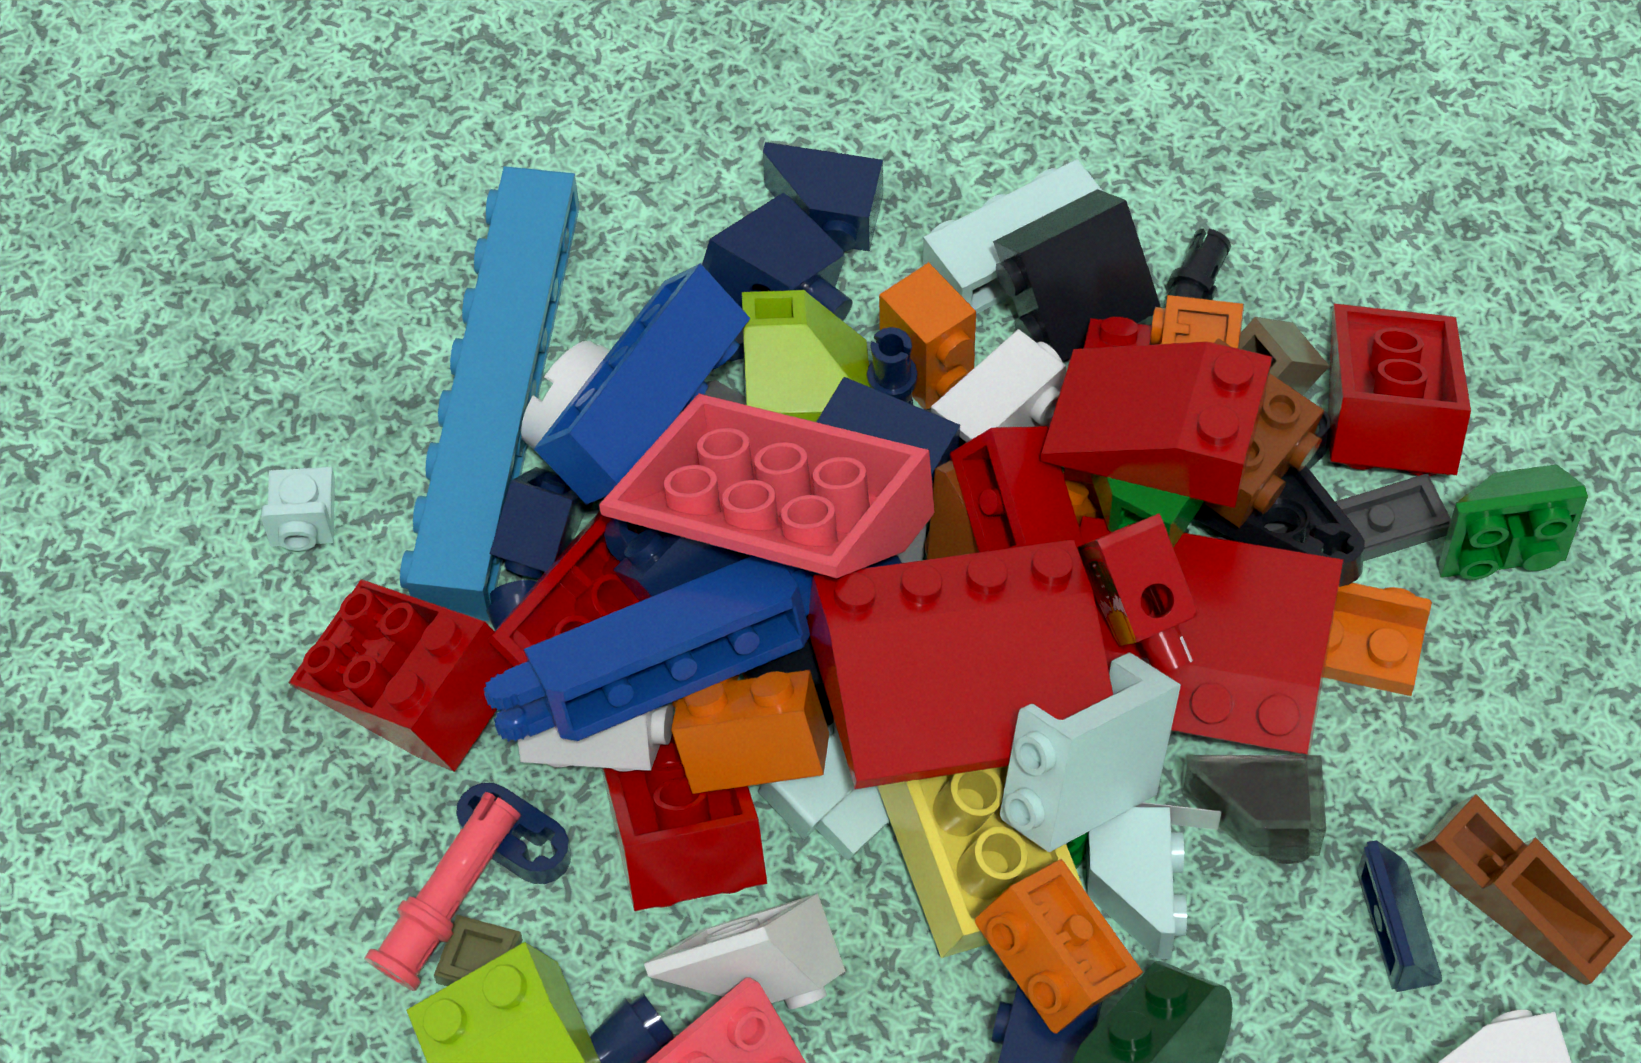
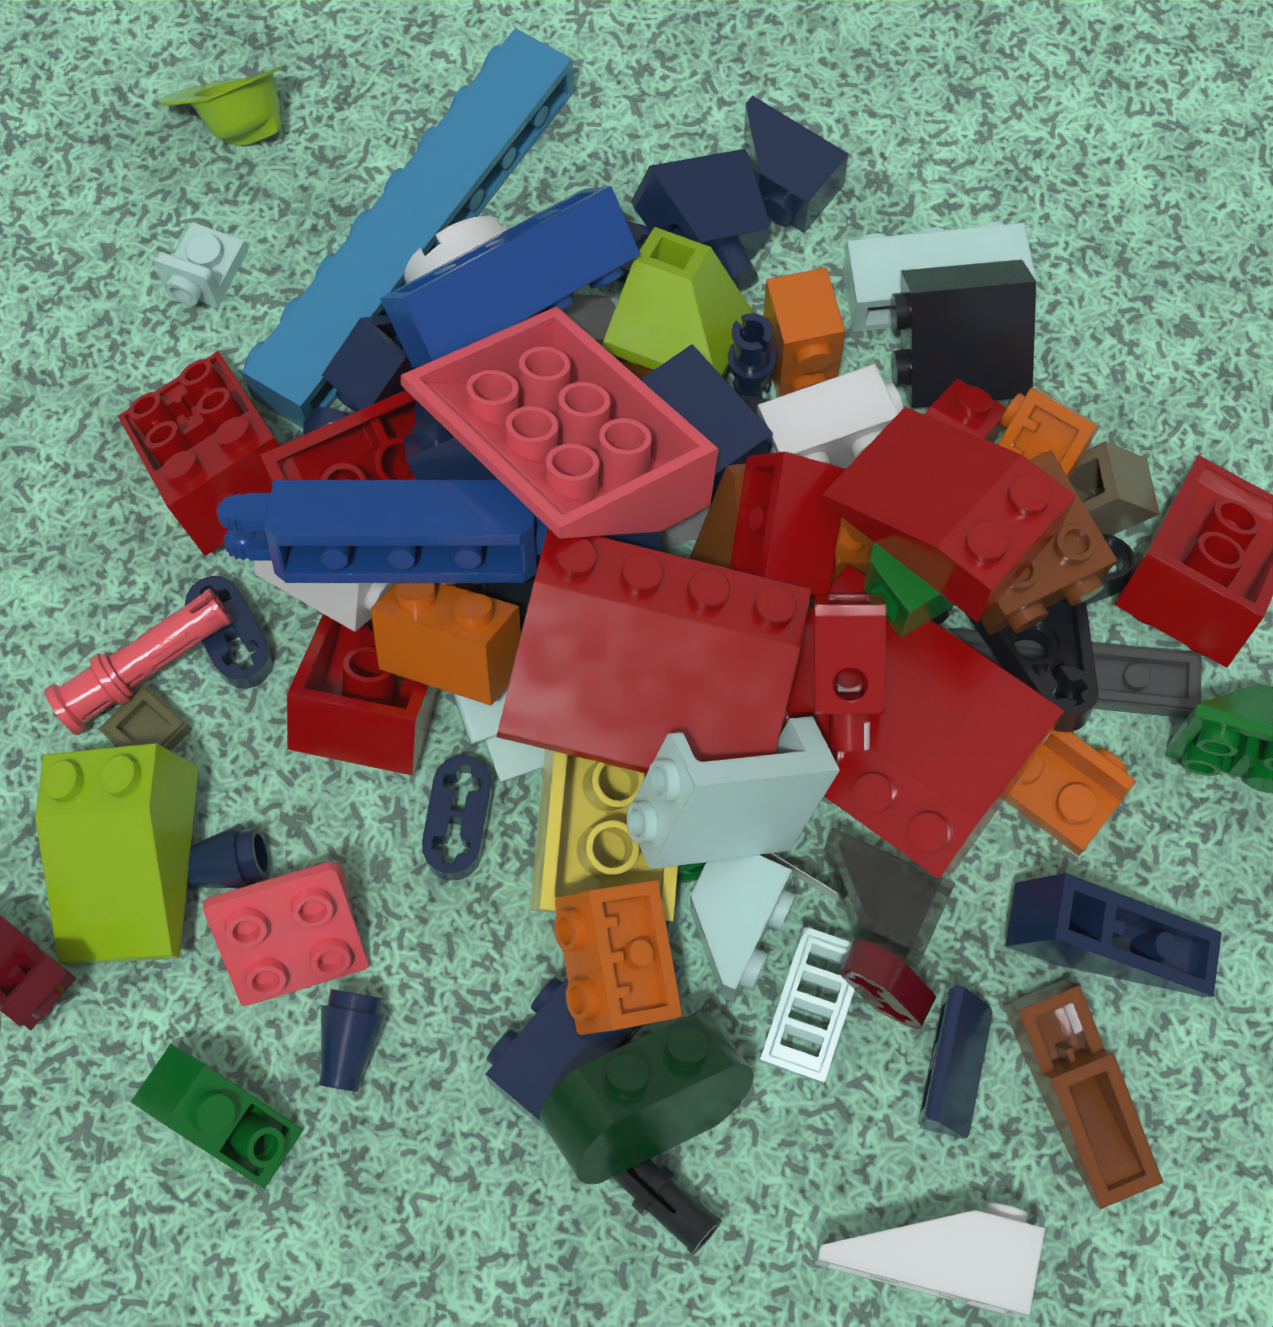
camera: 25 degrees right, 10 degrees up
(256, 347) = (235, 109): none -> lime piece
(781, 948) = (370, 838): white slope -> none
(842, 890) = (442, 815): none -> dark blue beam
(1200, 266) = (1078, 381): black pin -> none
(1242, 868) = (787, 1058): none -> light aqua slope
(1306, 869) = (887, 983): none -> dark red beam
(1475, 745) = (1111, 935): none -> dark blue slope

